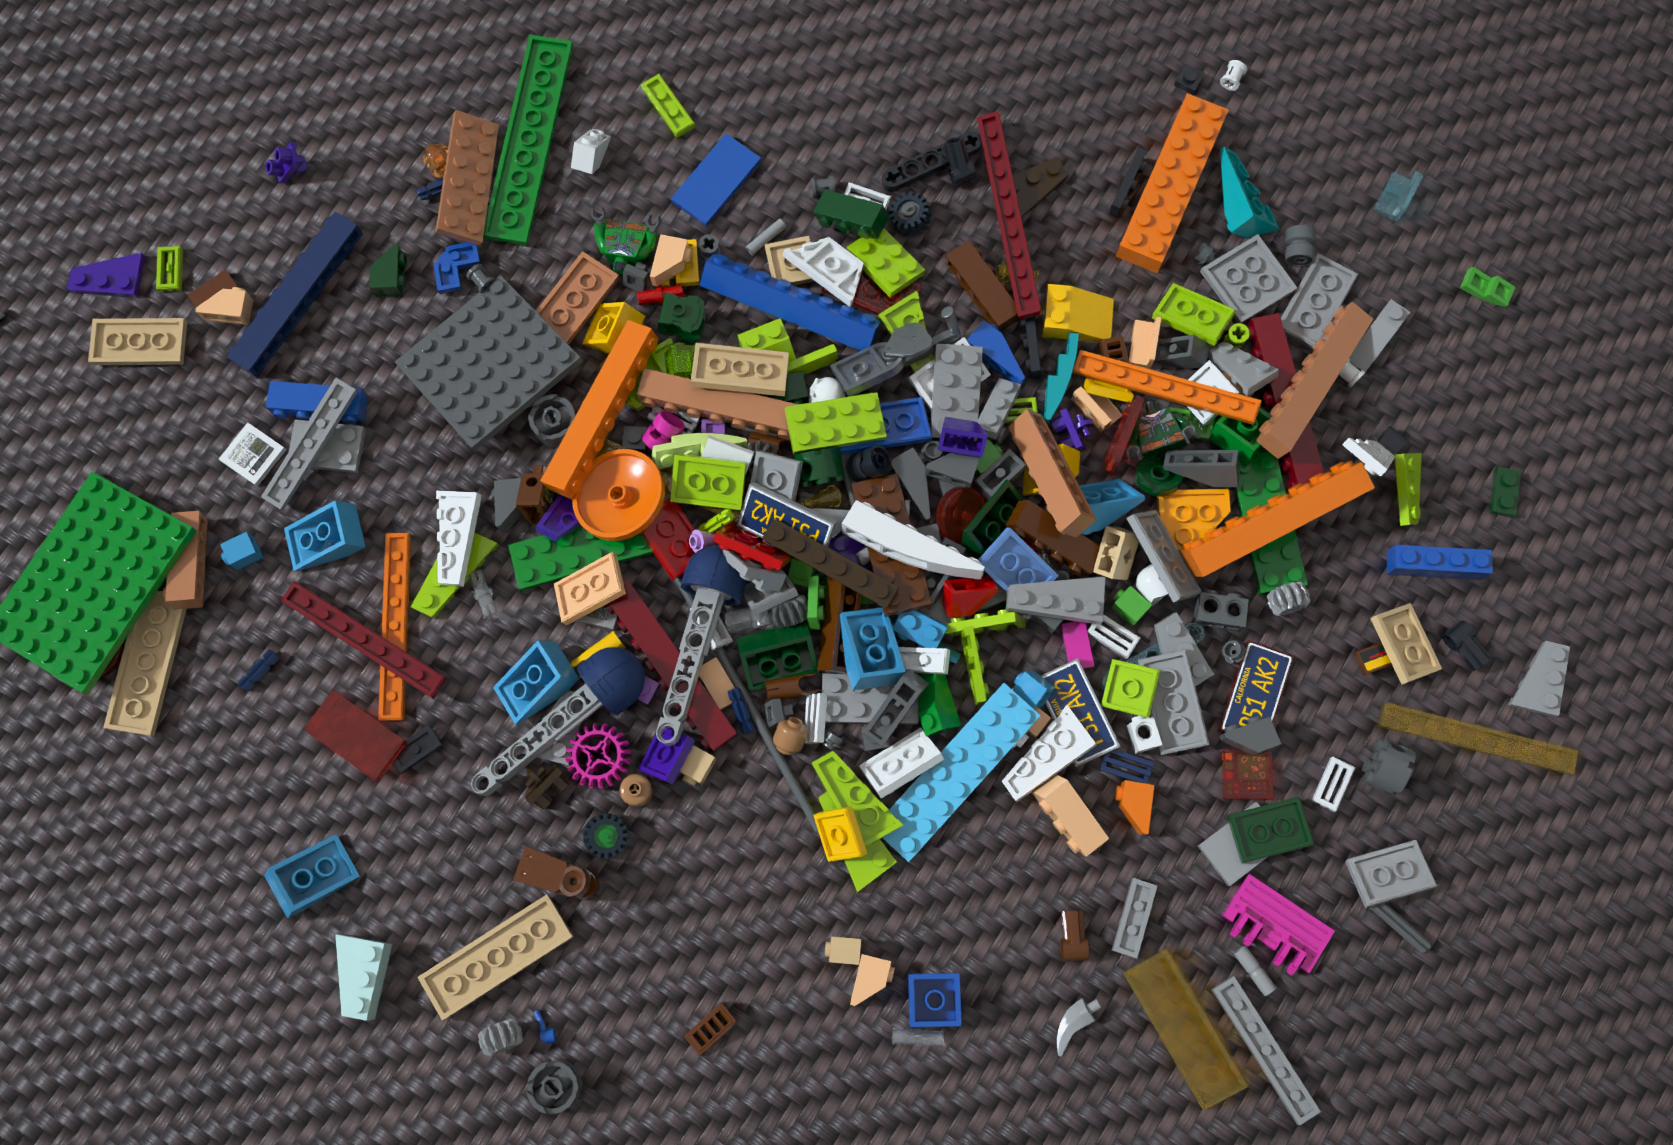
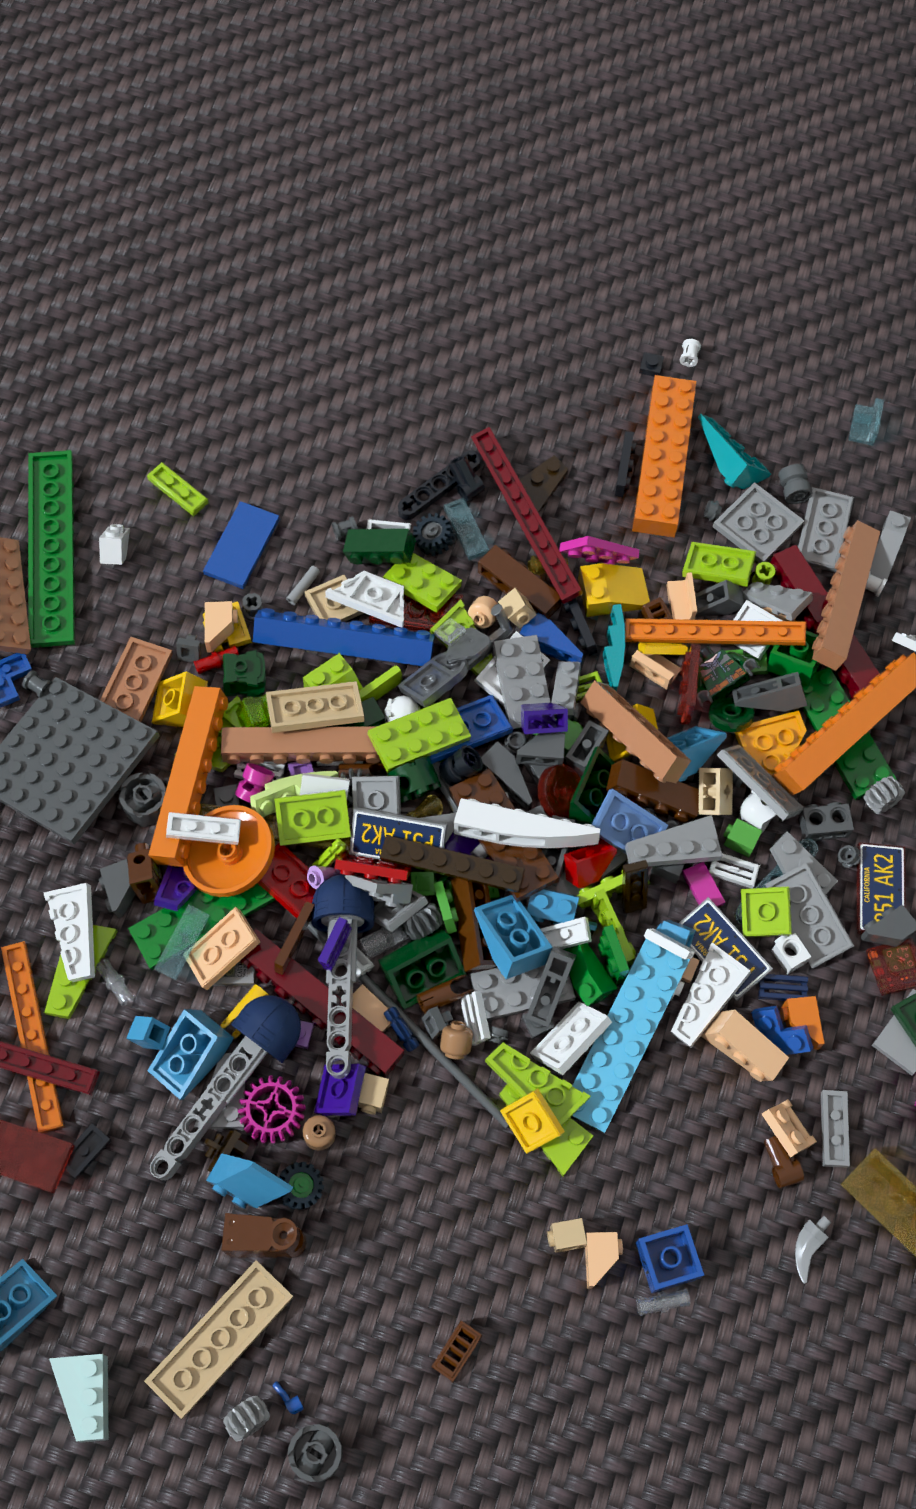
camera: 20 degrees left, 10 degrees down
(501, 652) = (148, 1032): none -> dark azure brick
(552, 820) = (246, 1182): none -> dark azure slope
(554, 572) = (182, 942): none -> clear light blue tile
(598, 468) = (203, 828): none -> white tile
(624, 241) = (169, 617): torso -> none
(658, 598) = (293, 938): none -> reddish brown tile
(695, 614) = (335, 944): none -> dark purple tile
(896, 323) = (450, 632): none -> clear tile
(933, 307) = (481, 612): none -> light nougat head
(946, 215) = (466, 529): none -> clear light blue tile
(965, 701) = (611, 949): none -> green plate
(971, 313) = (517, 608): none -> tan brick
(1005, 630) = (635, 886): none -> dark brown tile
(1022, 696) = (669, 943): none -> white tile
(1066, 421) = (631, 686): dark purple hips -> none
(1070, 272) = (599, 550): none -> dark pink plate
(1087, 906) = (788, 1128): none -> light nougat plate
(1112, 820) = (788, 1040): none -> blue plate

